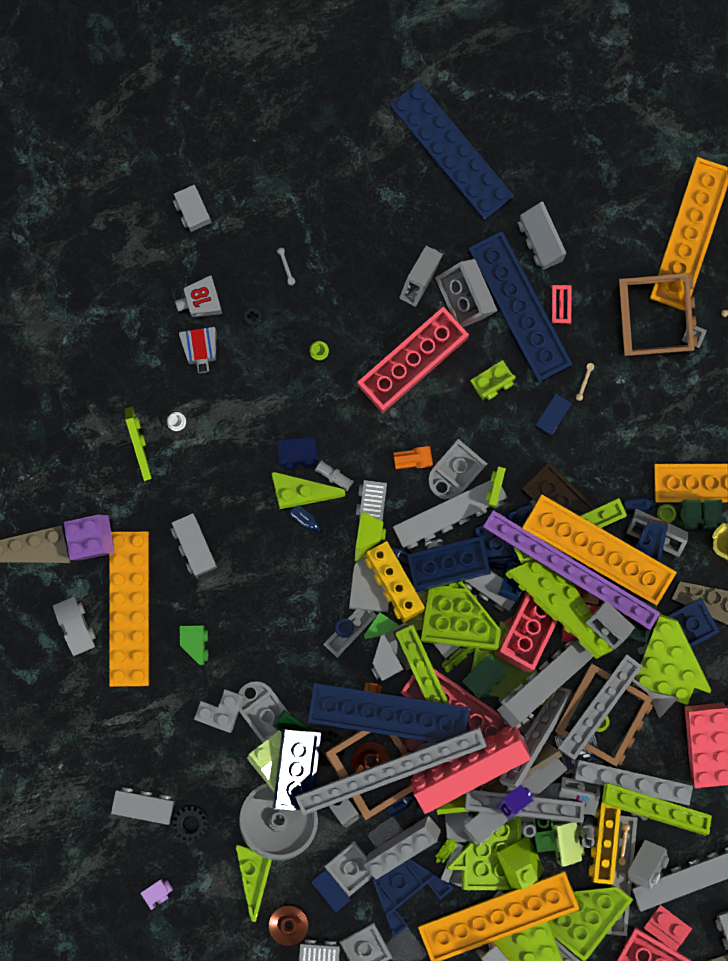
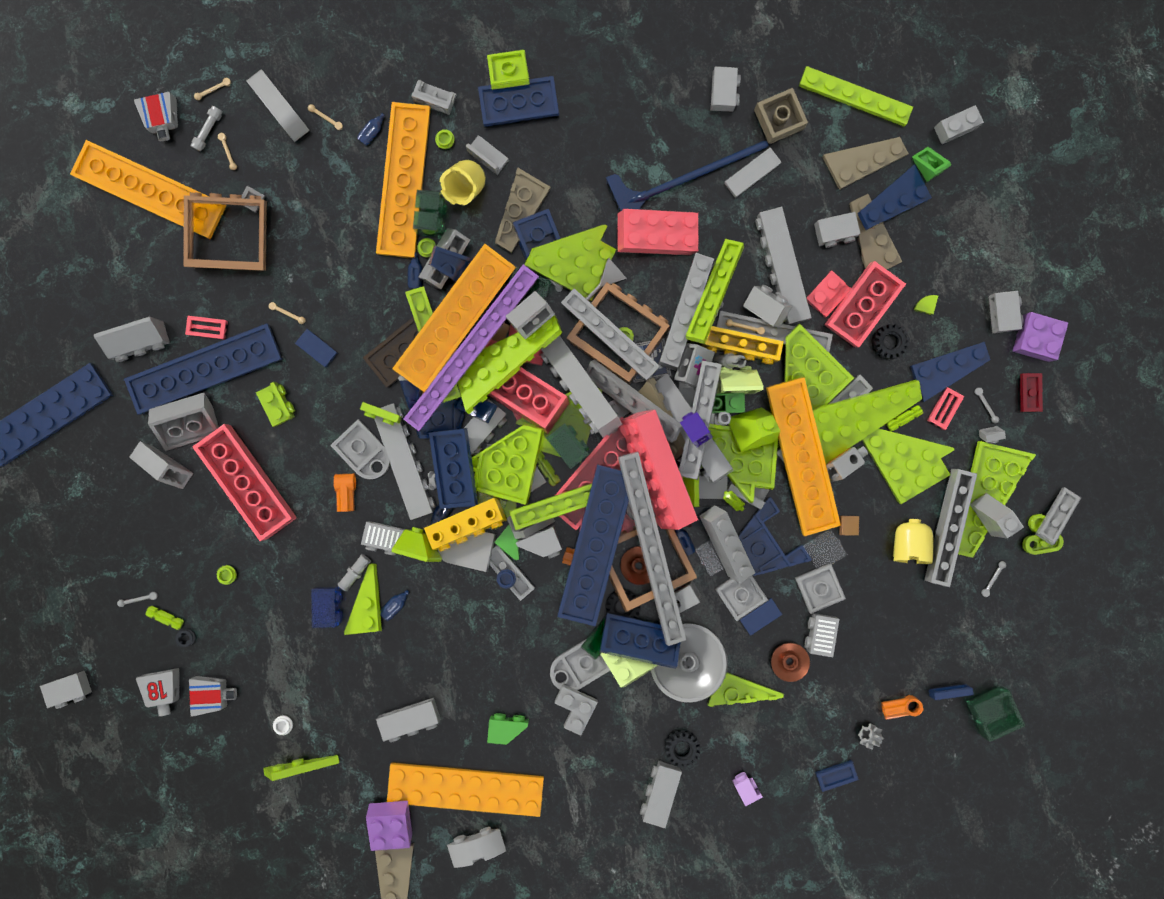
camera: 85 degrees left, 5 degrees up
(271, 294) = (164, 617): none -> lime axle

